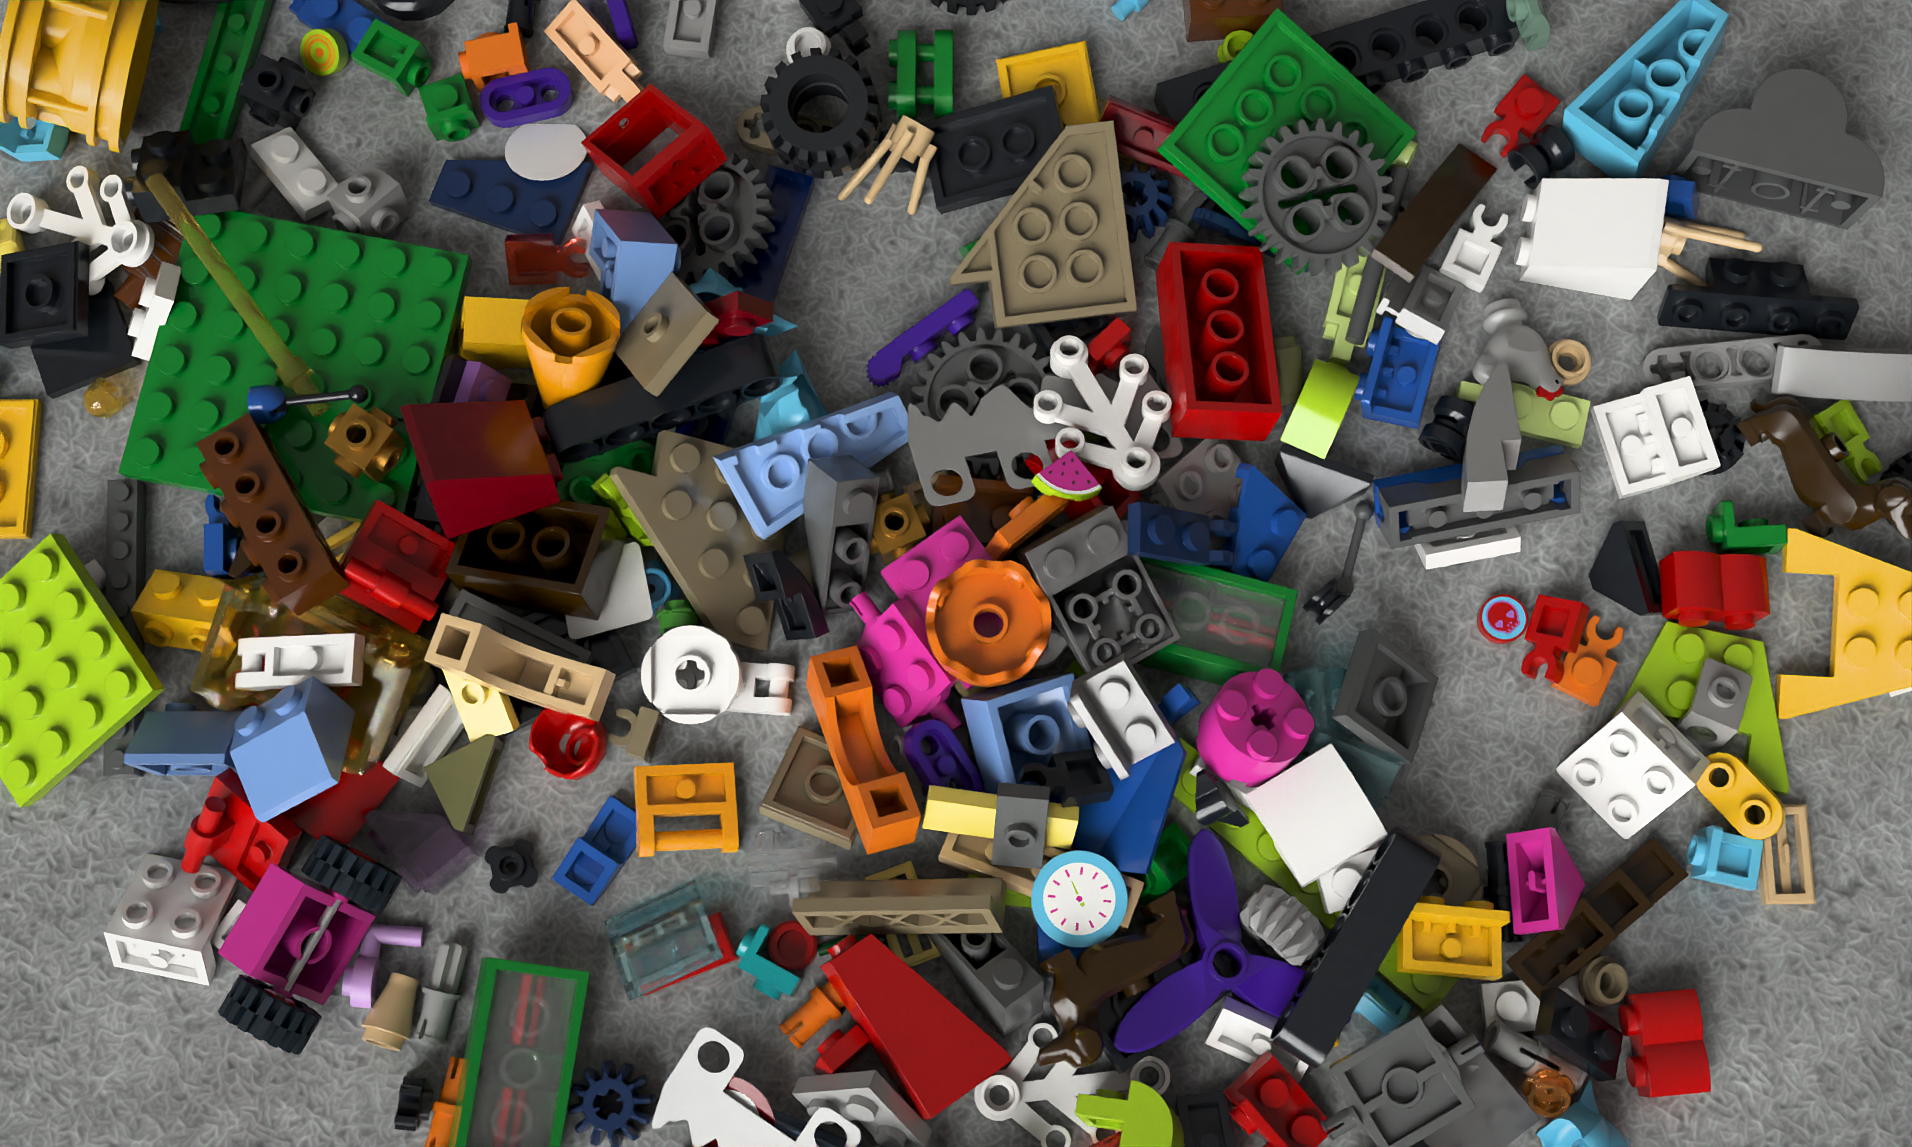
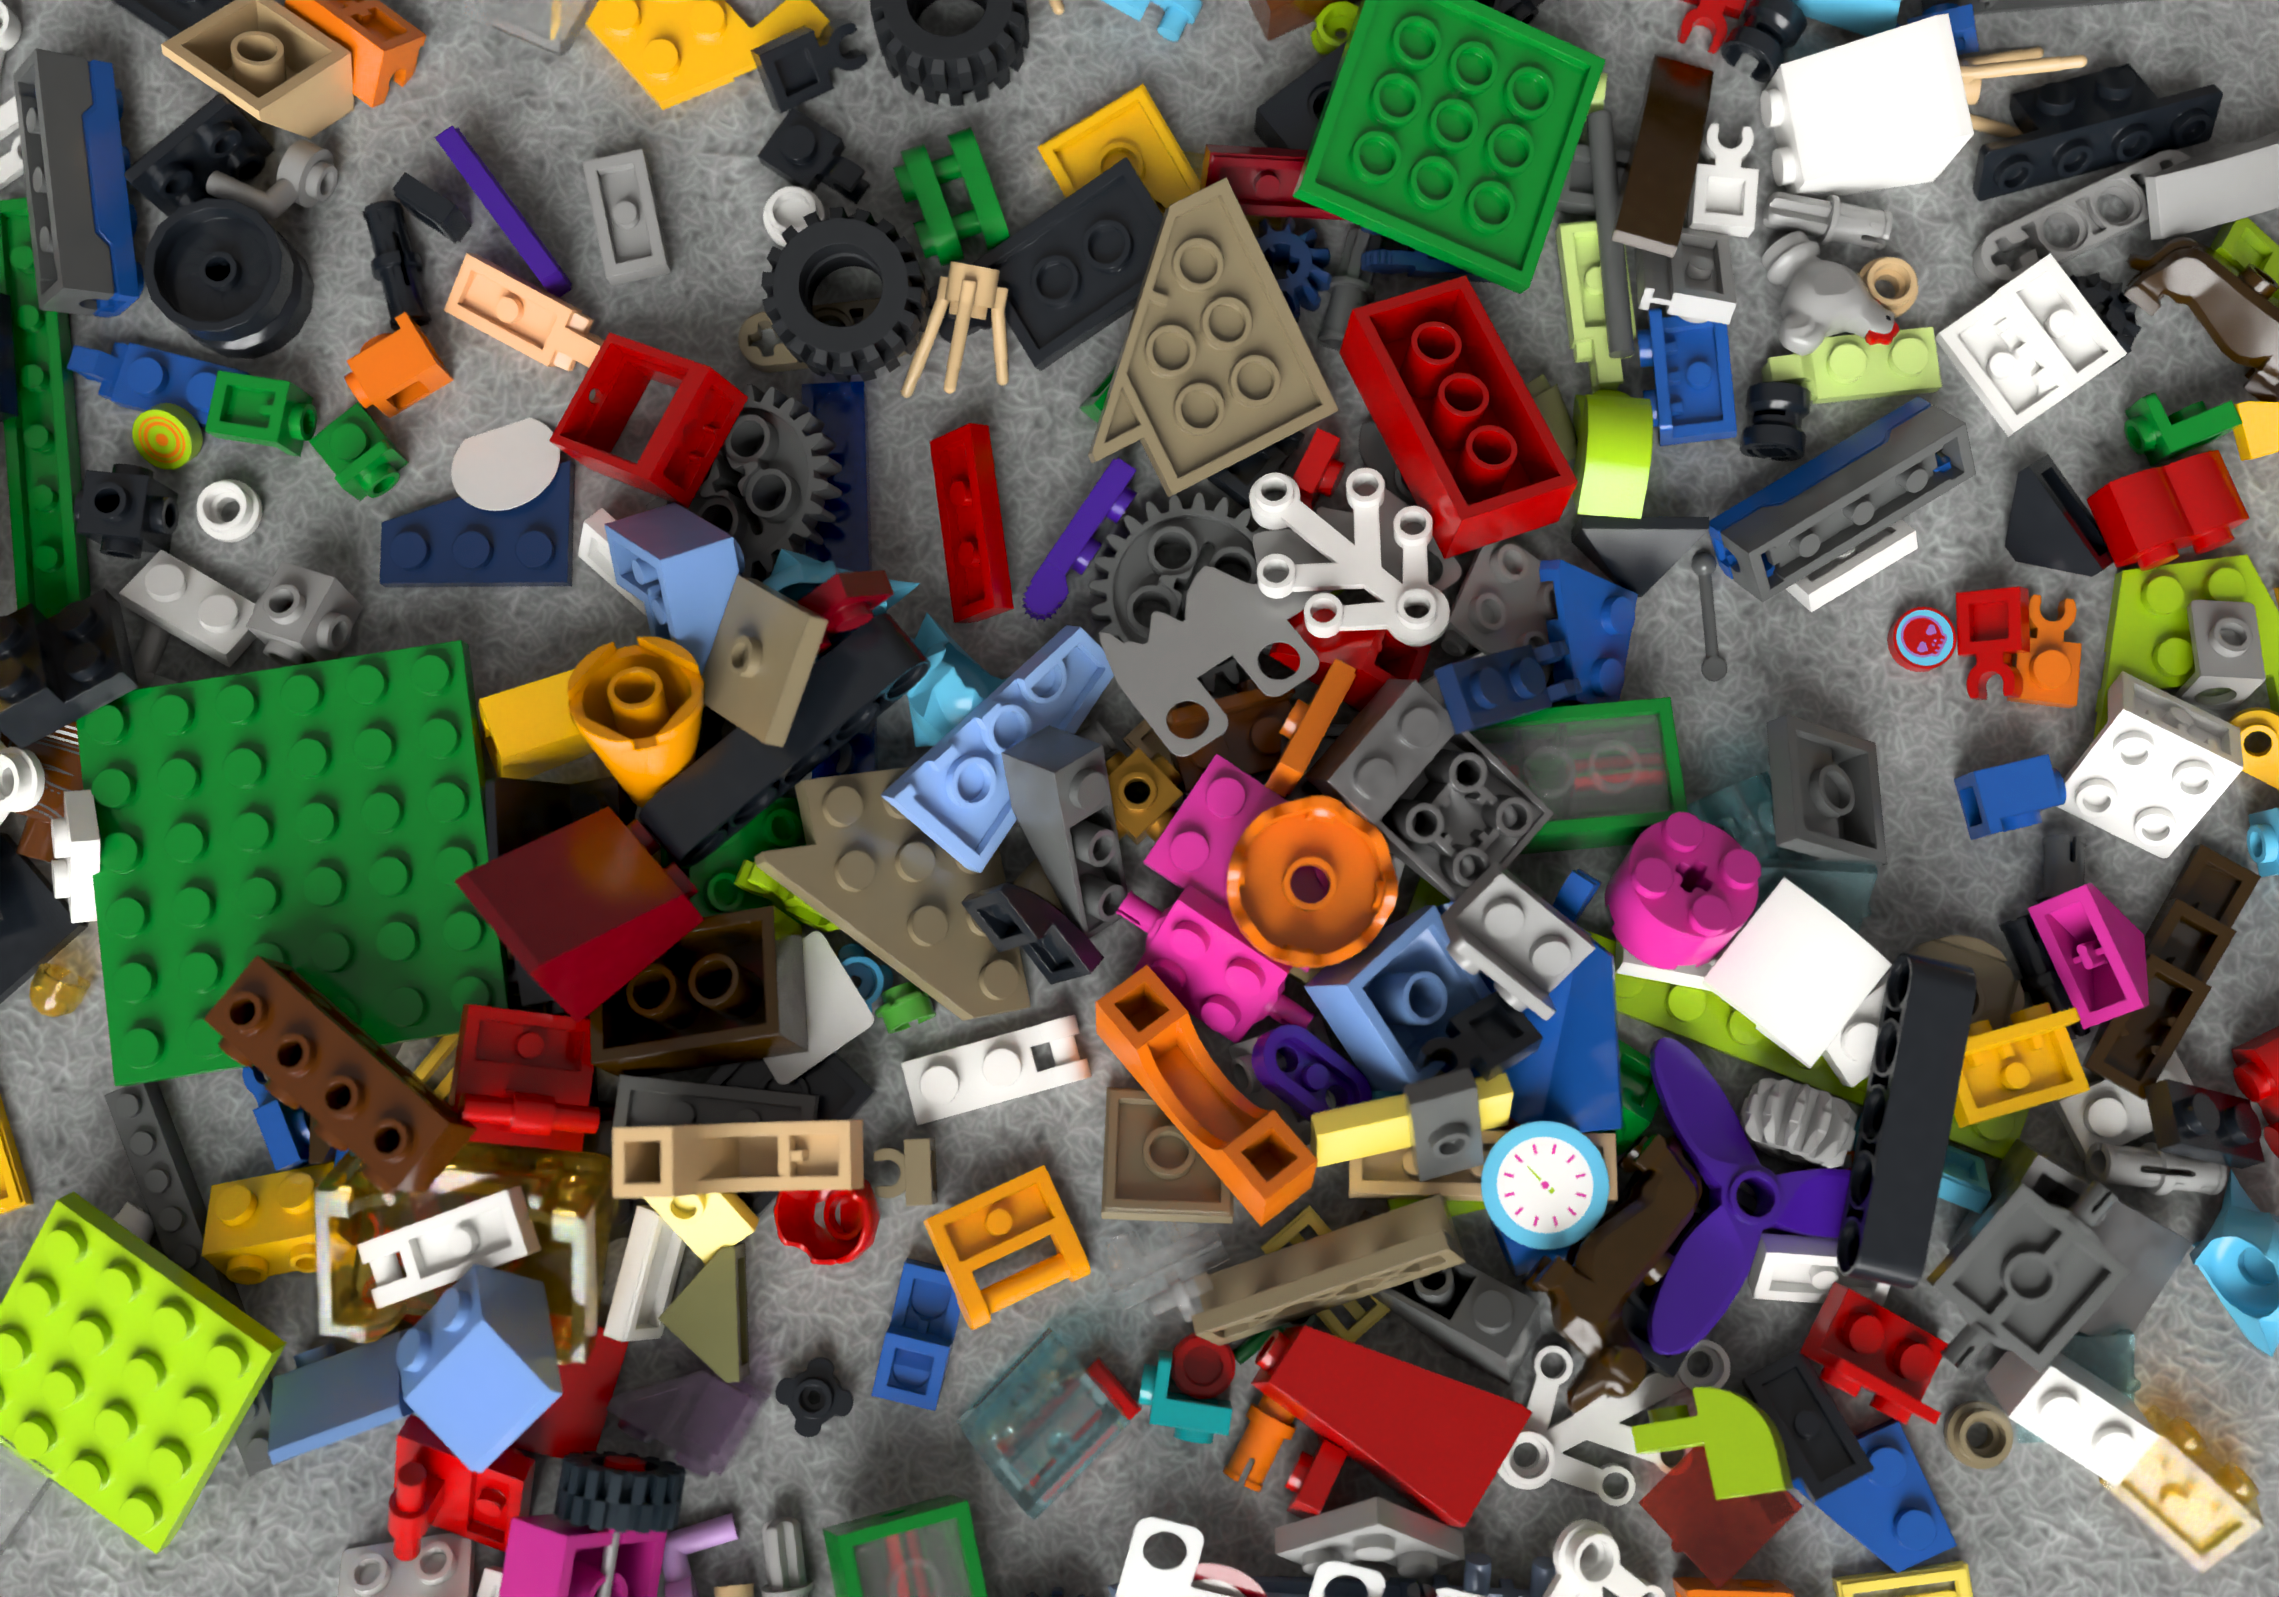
camera: 20 degrees left, 5 degrees up
(271, 404) = (280, 929): hinge -> none
(290, 369) = (289, 875): clear yellow bar -> none
(336, 107) = (213, 500): none -> white plate
(365, 442) = (446, 943): pearl gold brick -> none
(482, 384) = (544, 806): medium lavender plate -> none
(527, 94) = (454, 400): dark purple plate -> none
(536, 259) = (551, 612): clear red plate -> none
(671, 694) = (936, 1110): white plate -> none
(851, 301) = (971, 524): none -> red plate
(1067, 479) = (1340, 663): dark pink tile -> none
(1216, 802) = (1665, 1000): black piece -> none
(1305, 156) = (1484, 137): dark grey gear -> none
(1326, 601) = (1703, 695): black bush -> none
(1491, 445) = (1848, 431): light grey slope -> none
(1524, 750) = (2009, 795): none -> blue brick
(1541, 299) = (1828, 219): none -> light grey axle
(1548, 1102) = (2193, 1209): clear orange plate -> none
(1613, 981) = (2206, 1046): dark tan plate -> none

